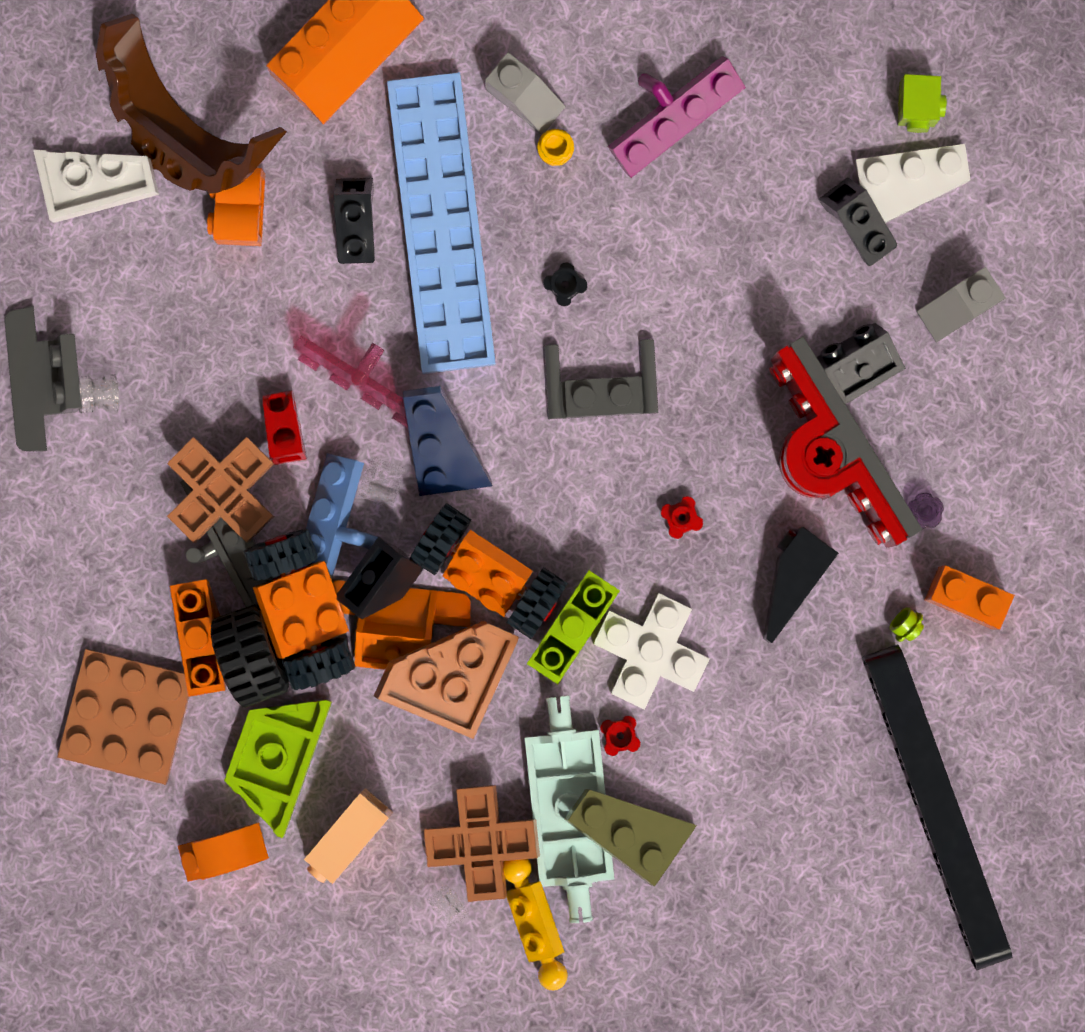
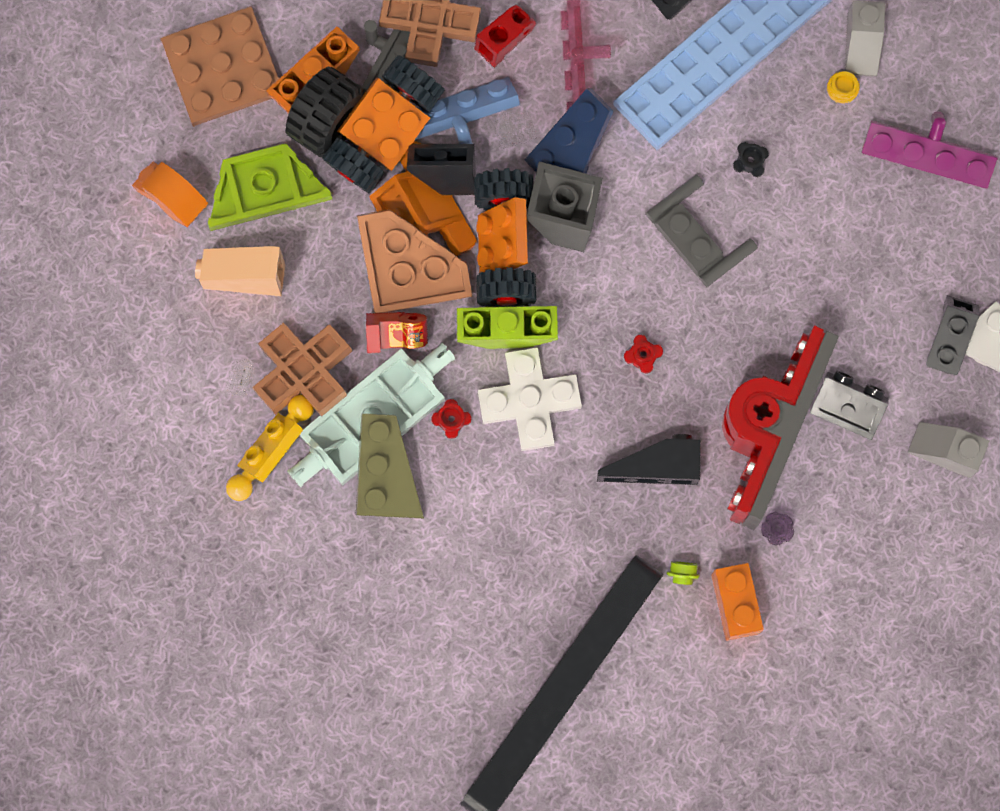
camera: 55 degrees right, 10 degrees down
(494, 493) = (564, 205): none -> dark grey slope
(504, 731) = (395, 331): none -> leg

